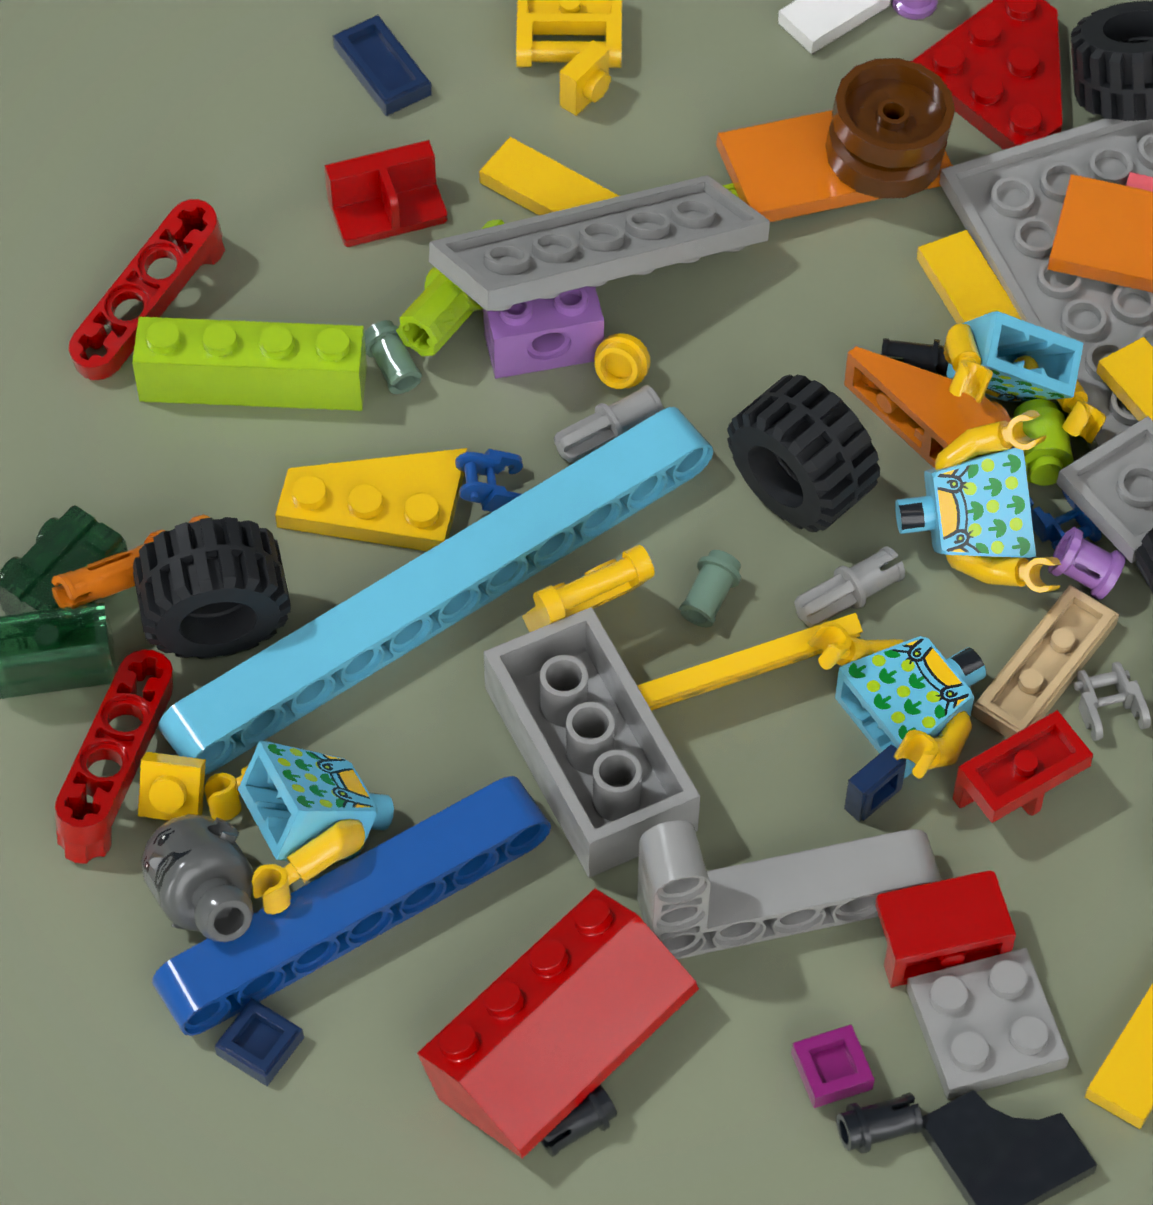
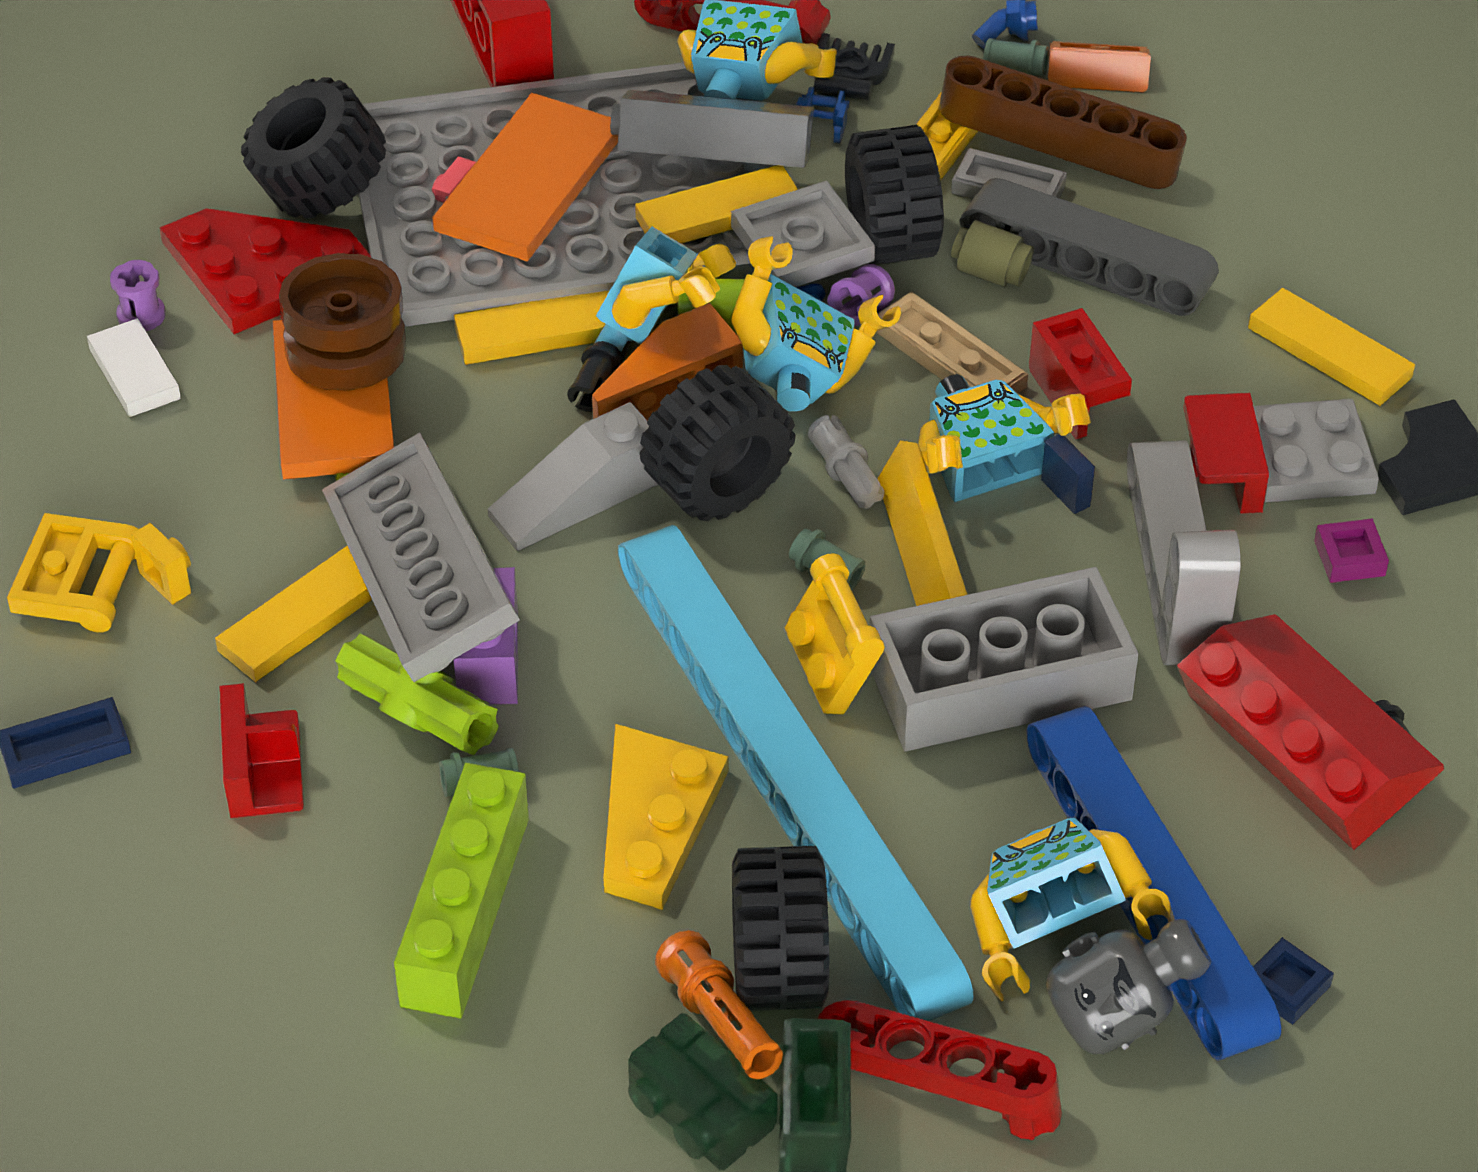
camera: 80 degrees left, 10 degrees down
(170, 786) = (994, 1008): yellow plate -> none
(188, 237) = (269, 906): red beam -> none
(487, 464) = (662, 712): blue piece -> none
(606, 424) = (612, 609): light grey axle -> none
(621, 361) = (541, 586): yellow plate -> none
(757, 356) = (577, 479): none -> light grey slope
(878, 1122) = (1411, 539): black pin -> none
(1129, 695) = (997, 327): light grey piece -> none

